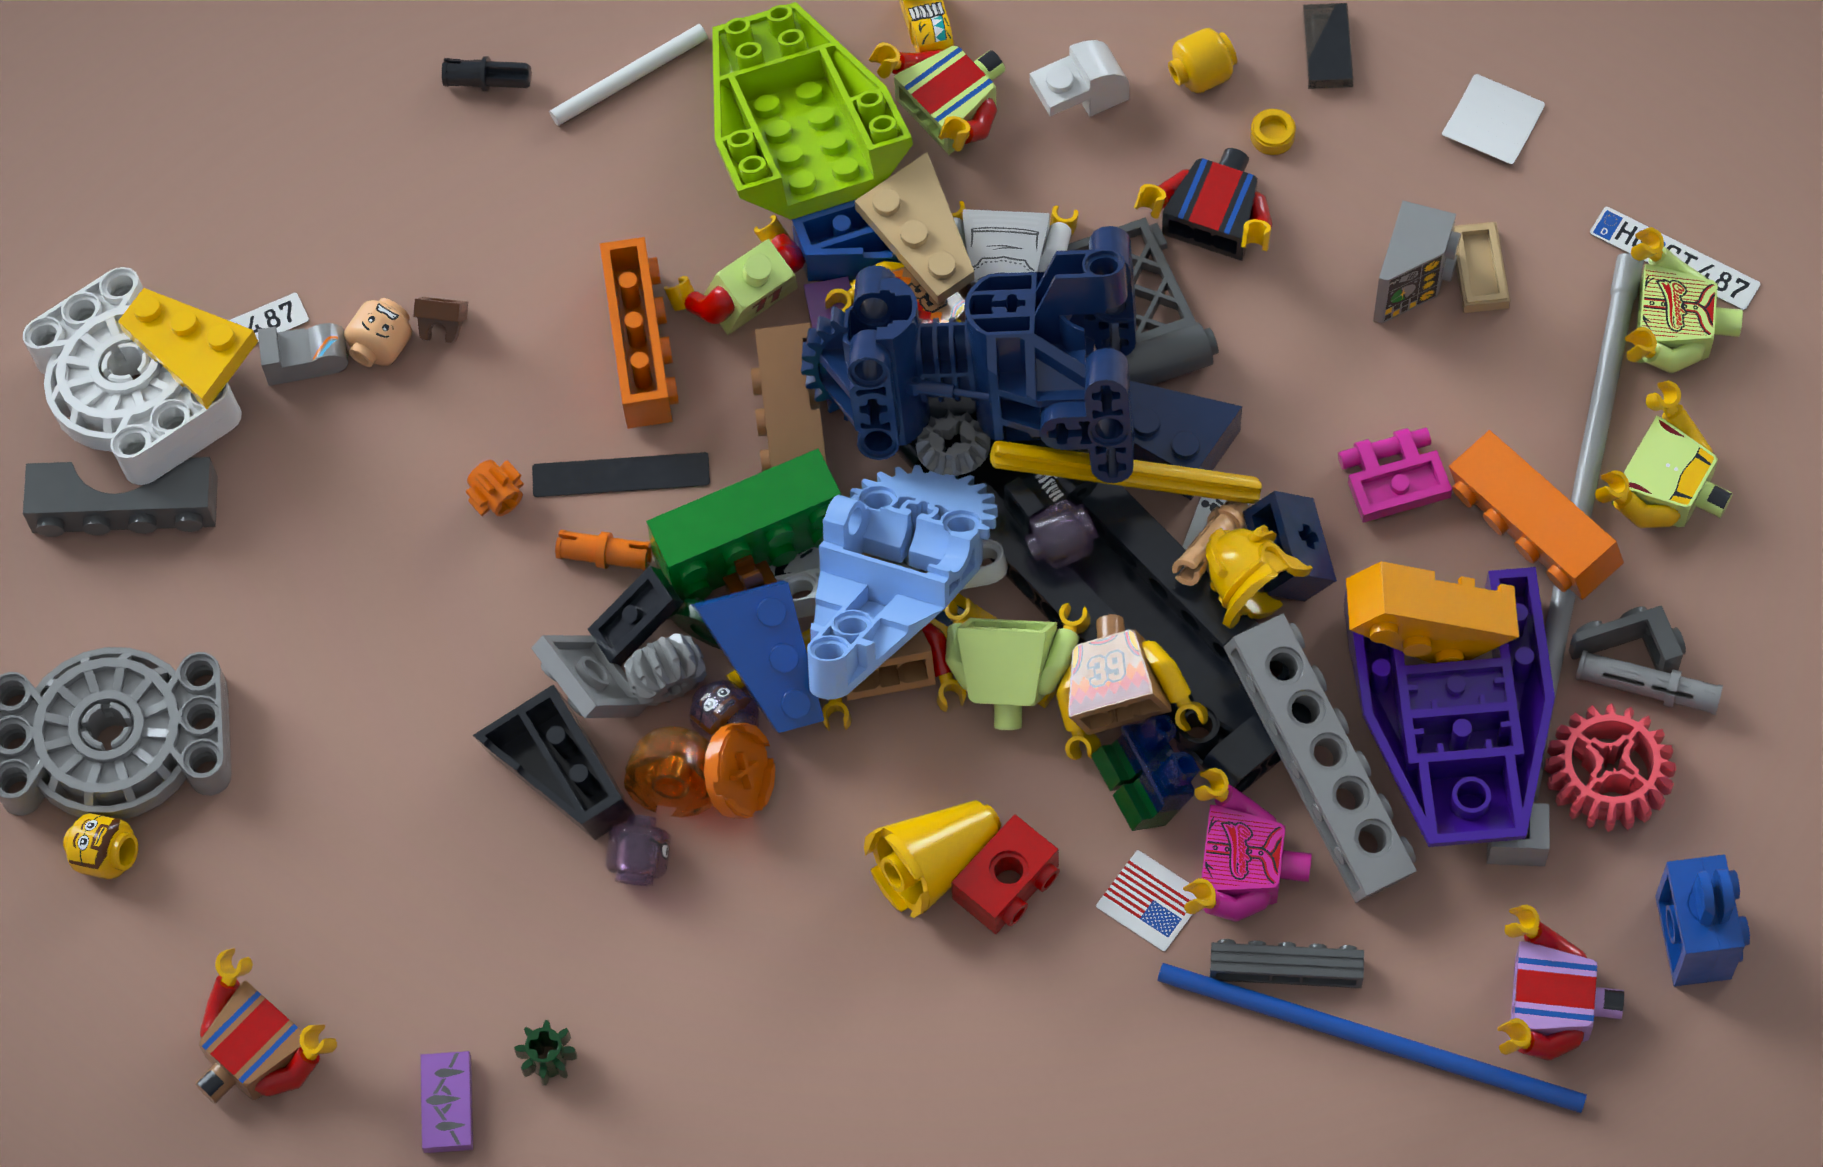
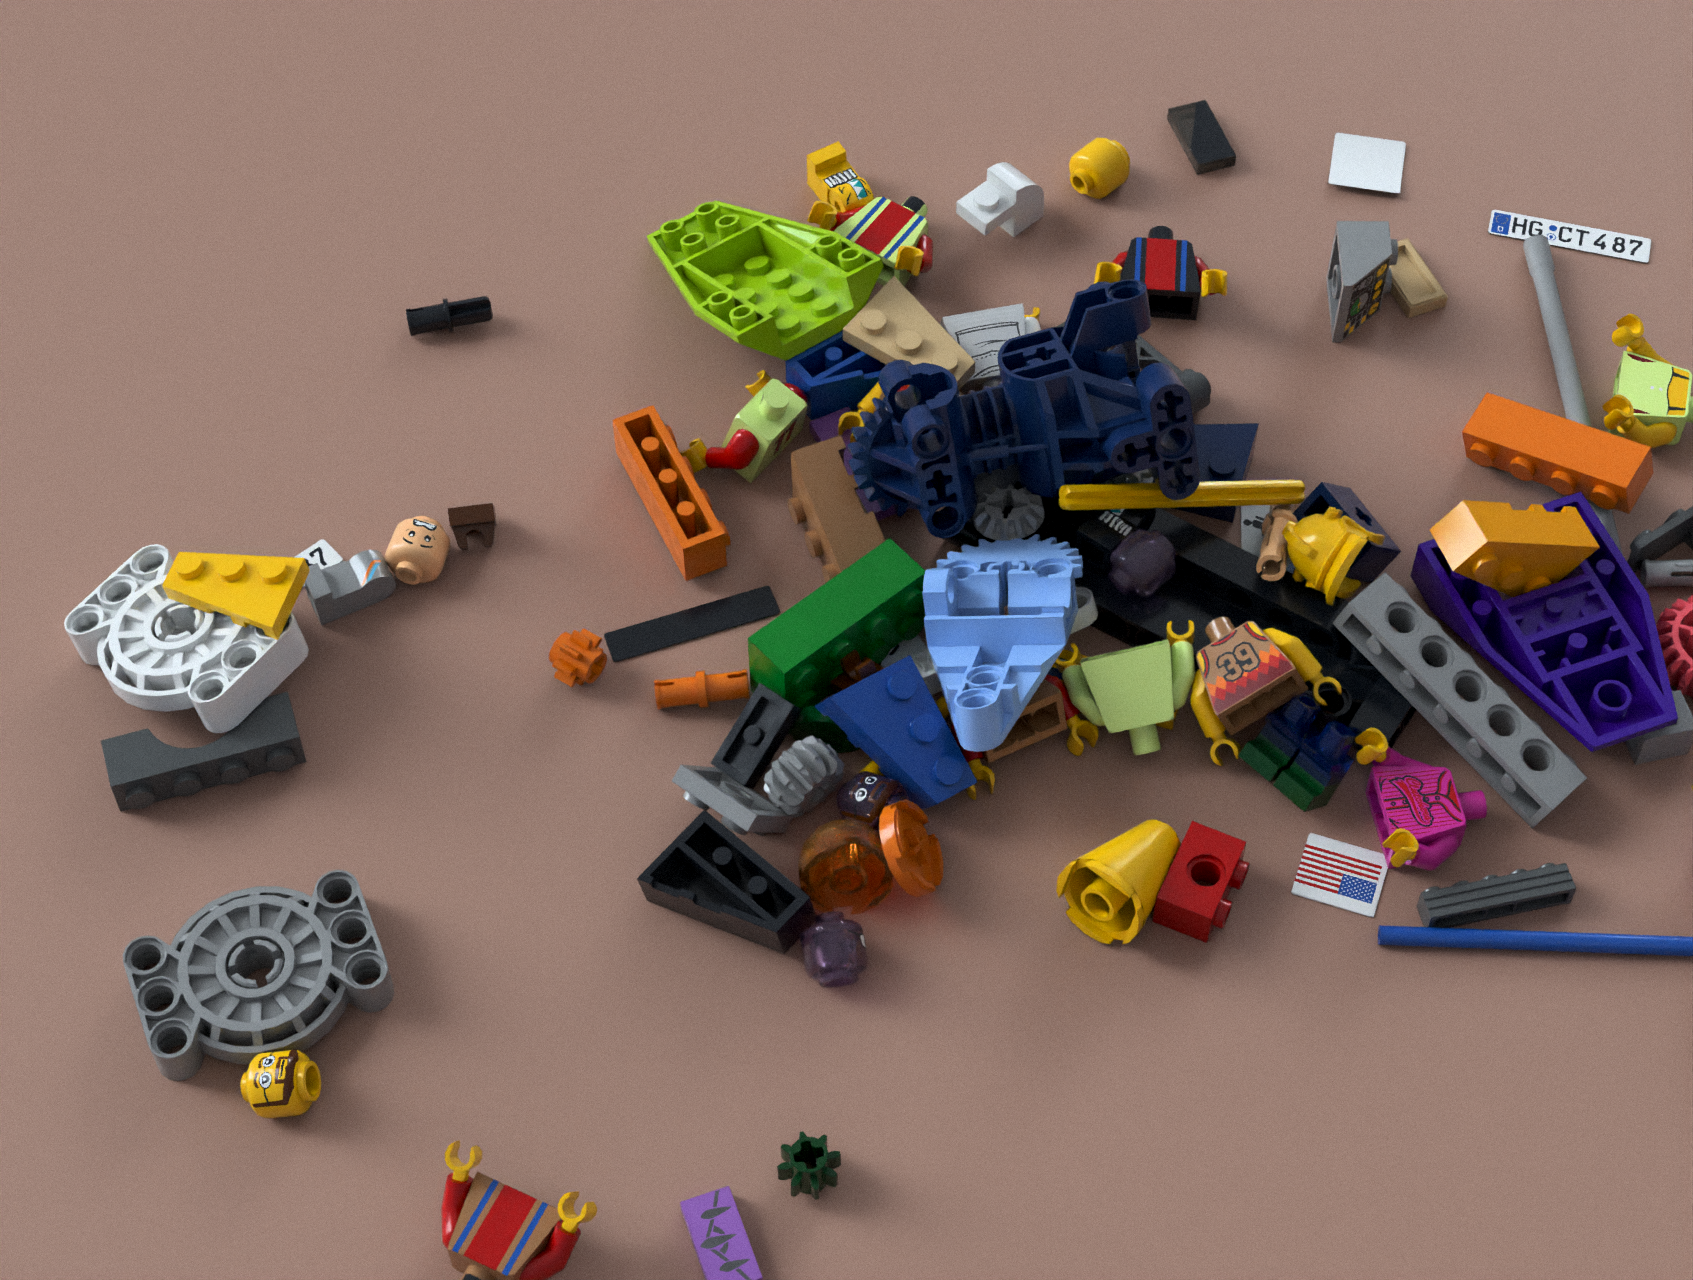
camera: 20 degrees left, 10 degrees down
(628, 74) = (581, 290): white bar -> none
(1273, 131) = (1181, 212): yellow tile -> none
(1396, 485) = (1418, 463): dark pink plate -> none
(1675, 310) = (1594, 270): yellowish green torso -> none

